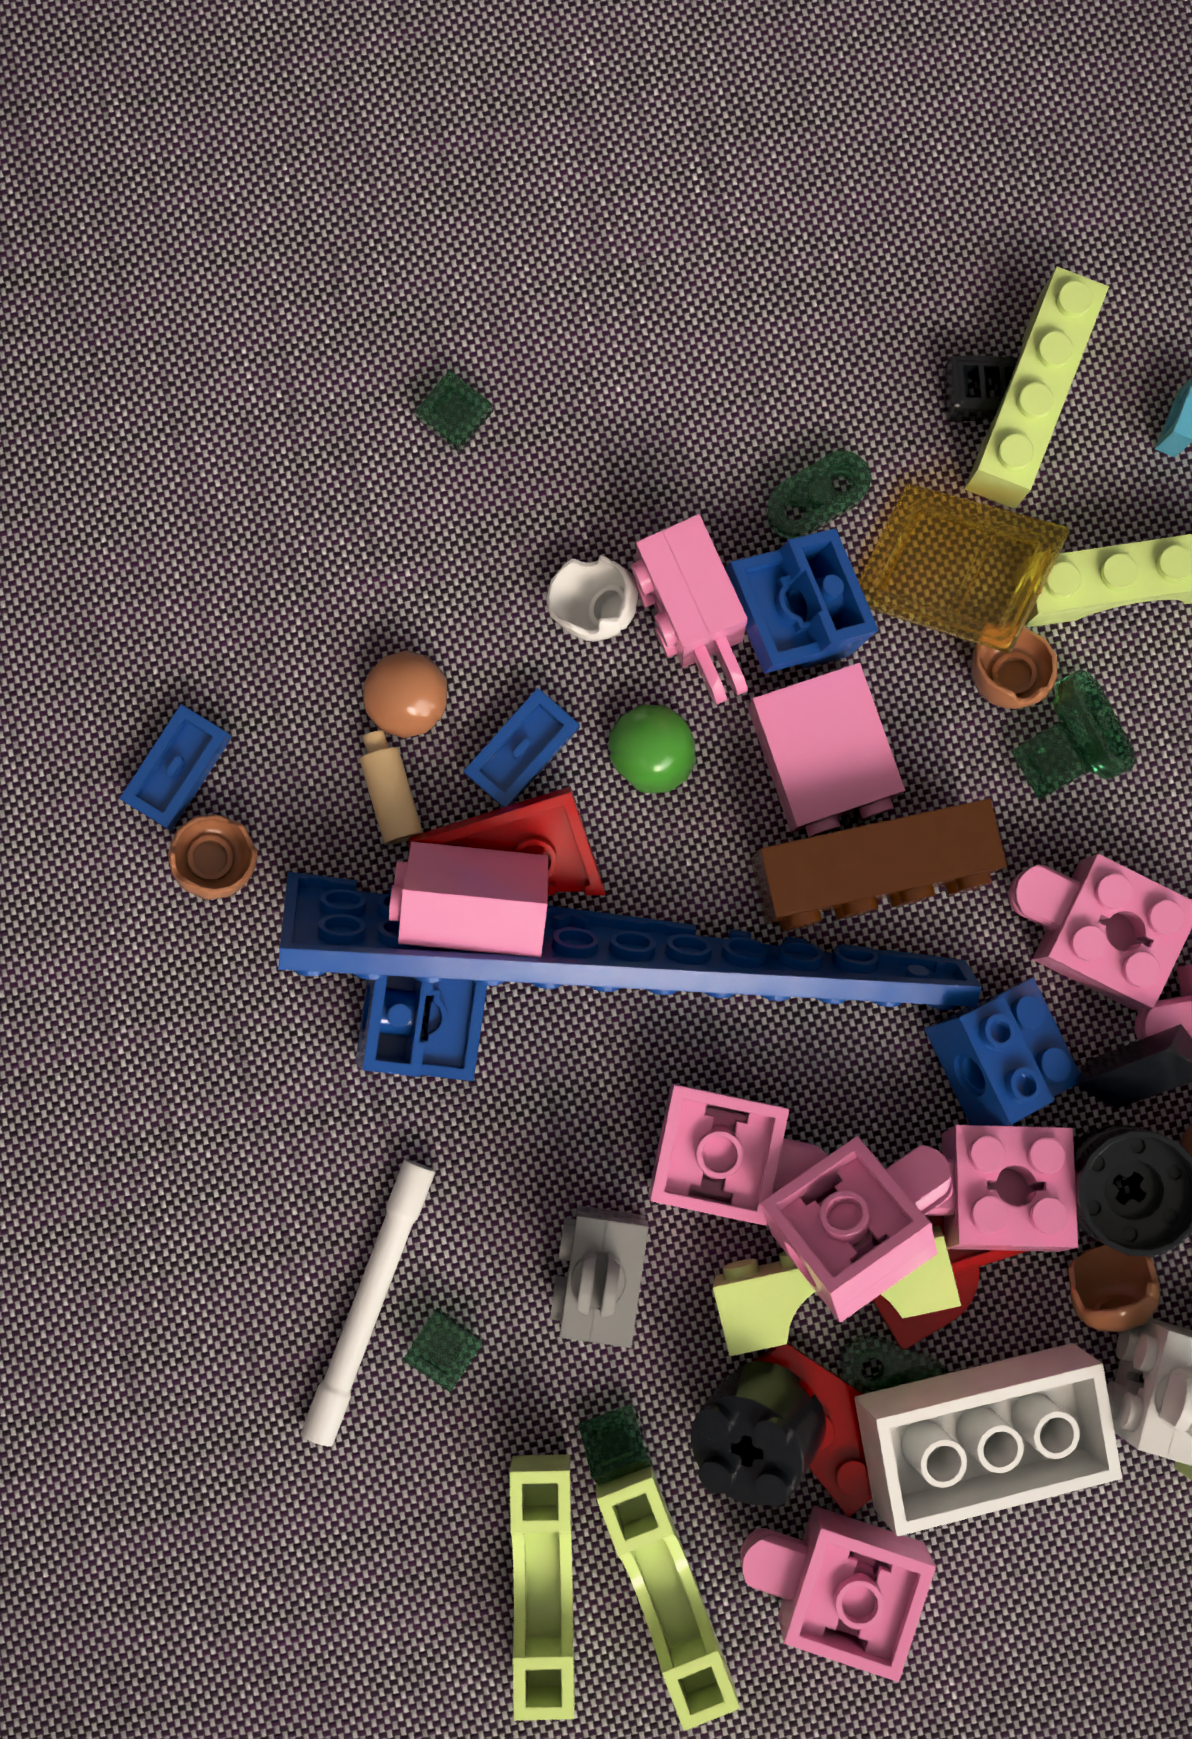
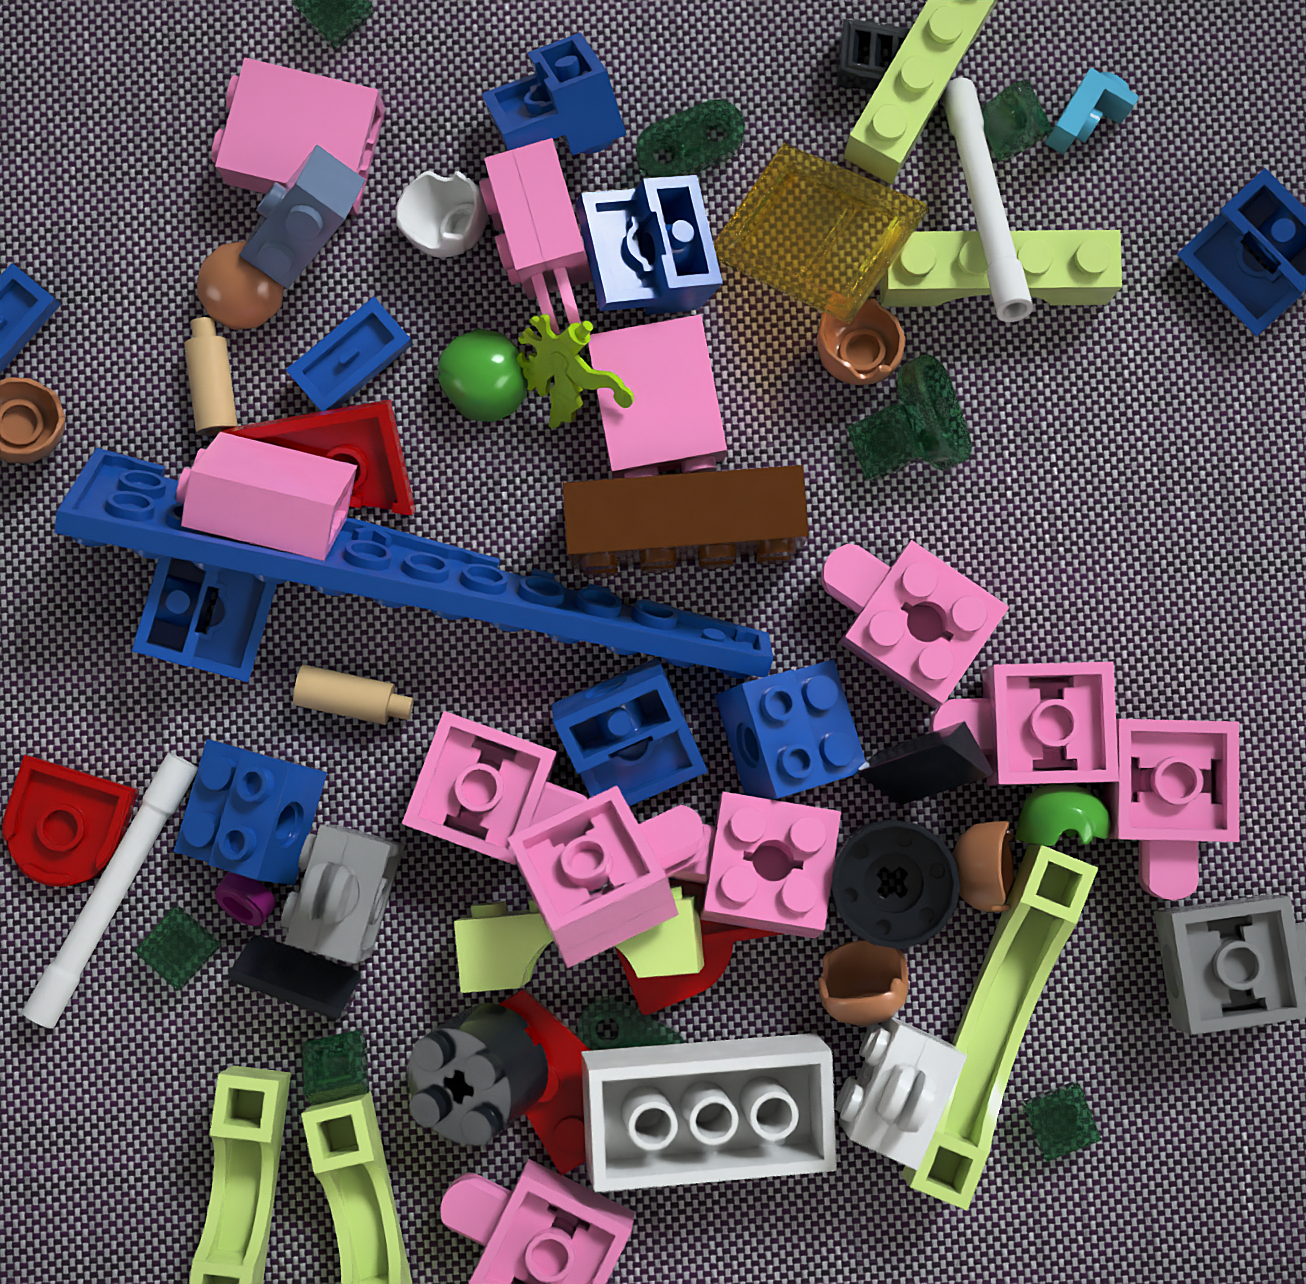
camera: 10 degrees right, 0 degrees up
(313, 1241) = (64, 822): none -> red tile
(439, 541) = (283, 115): none -> bright pink brick
(462, 622) = (301, 216): none -> sand blue brick
(493, 1208) = (250, 813): none -> blue brick
(502, 1292) = (245, 899): none -> magenta tile
(562, 1363) = (296, 977): none -> black slope
(572, 1079) = (349, 695): none -> tan cylinder
(693, 472) = (563, 99): none -> blue brick
(733, 724) = (559, 357): none -> lime piece
(850, 1079) = (629, 735): none -> blue brick
(1126, 432) = (1014, 120): none -> clear green plate
(1154, 580) = (1004, 269): none -> white piece

